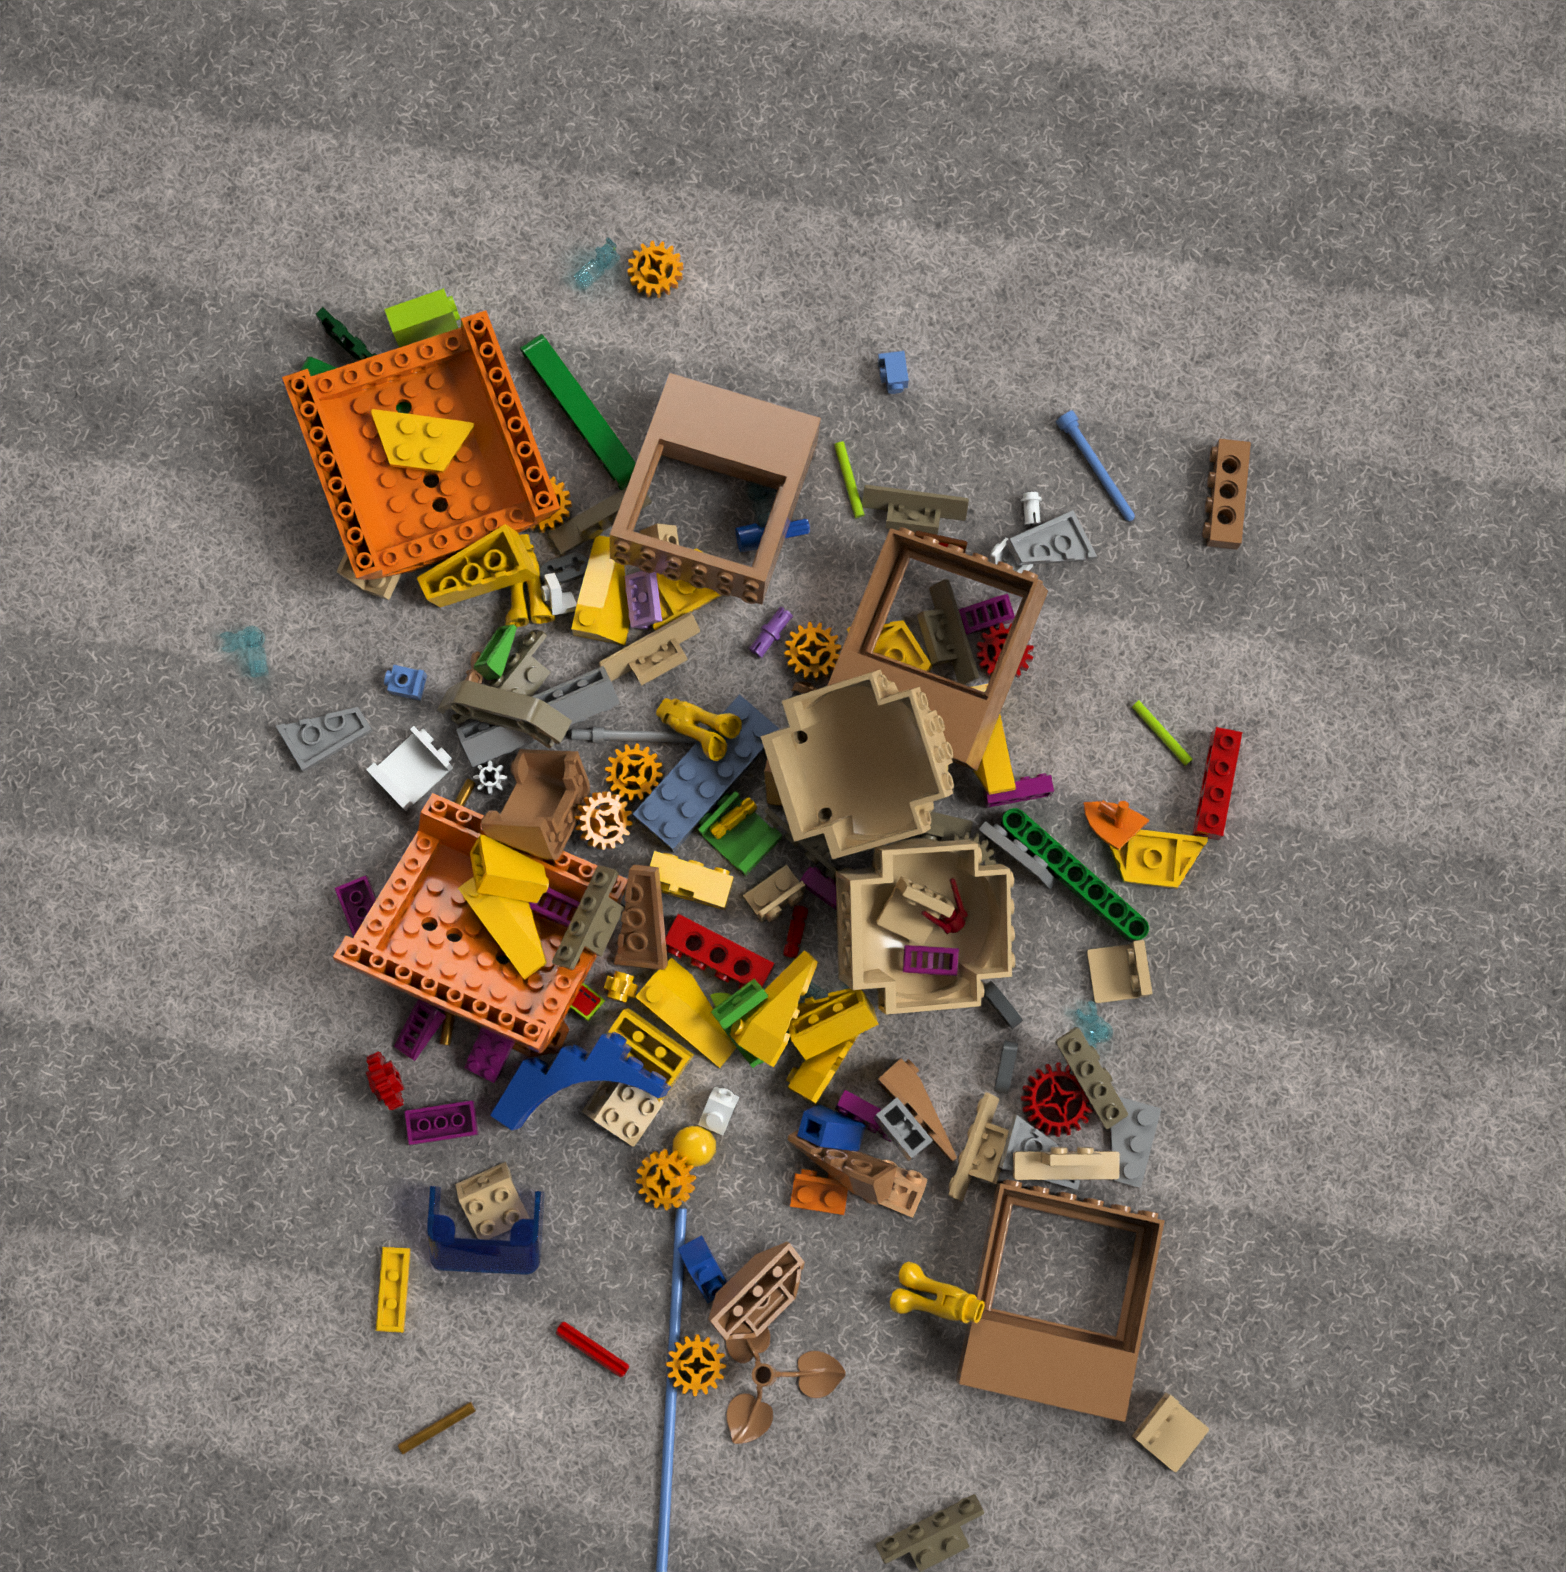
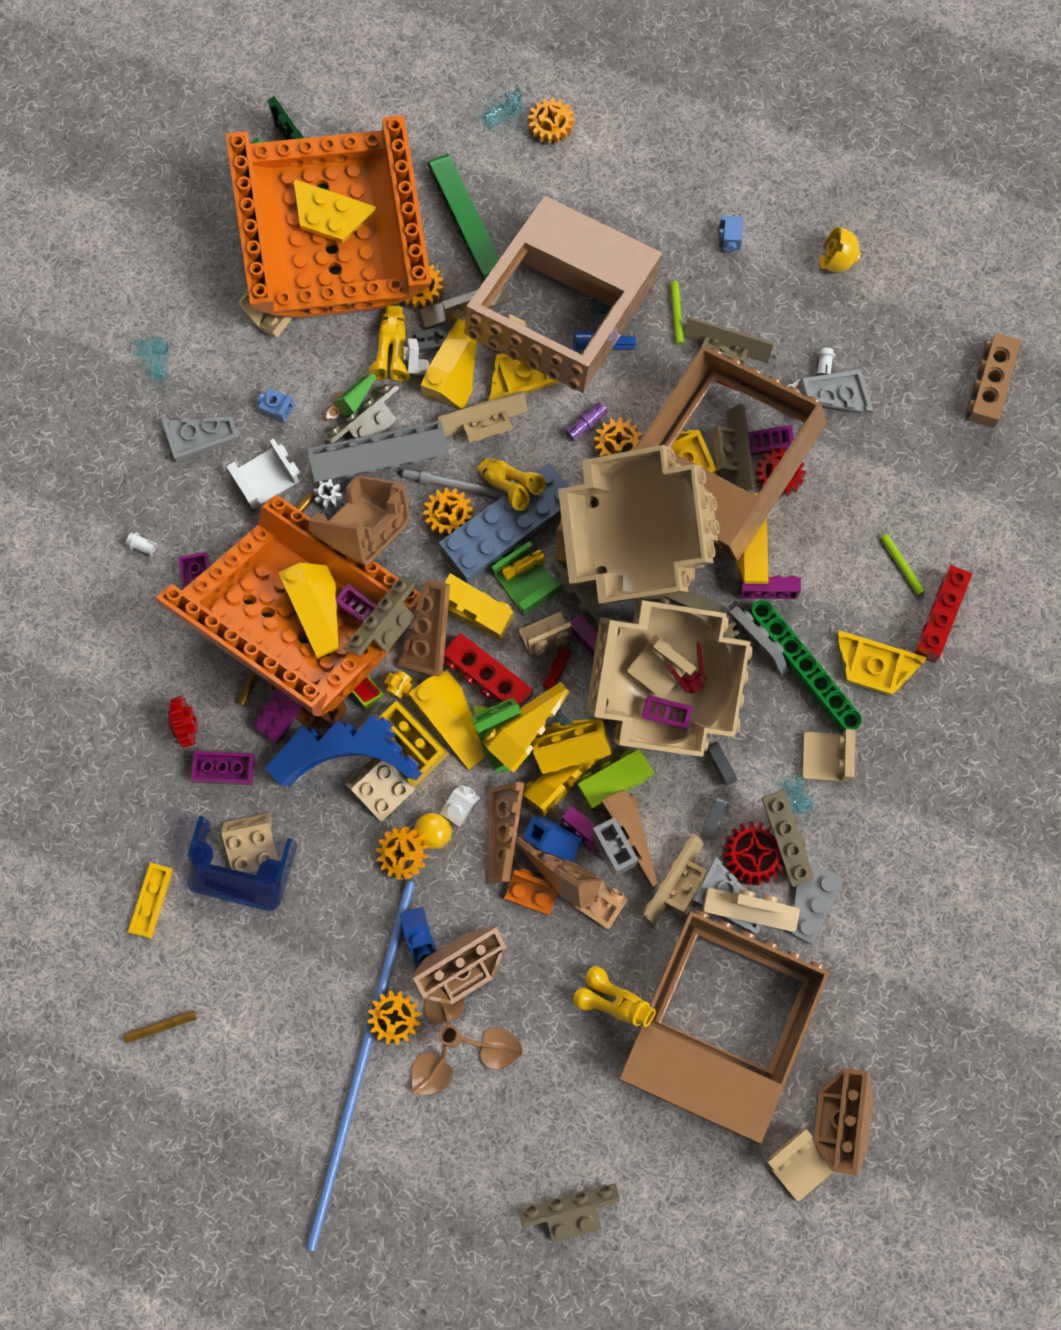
camera: 15 degrees right, 5 degrees down
(286, 879) = (142, 544): none -> white pin
(422, 317) = (353, 117): lime brick -> none
(430, 1026) = (233, 679): magenta slope -> none
(479, 569) = (355, 323): yellow wedge -> none
(506, 710) = (352, 437): dark tan piece -> none
(506, 872) = (322, 567): yellow slope -> none
(592, 1349) = (308, 986): red axle -> none
(613, 815) = (404, 545): light orange gear -> none
(643, 599) = (485, 373): lavender bracket -> none
(772, 1125) = (503, 820): none -> medium nougat wing
(886, 1047) = (615, 777): none -> lime brick
(1027, 370) = (843, 250): none -> yellow cylinder
(1069, 424) = (869, 300): medium blue piece -> none
(1113, 821) = (847, 629): orange shield -> none
(1210, 1376) = (844, 1120): none -> medium nougat wedge

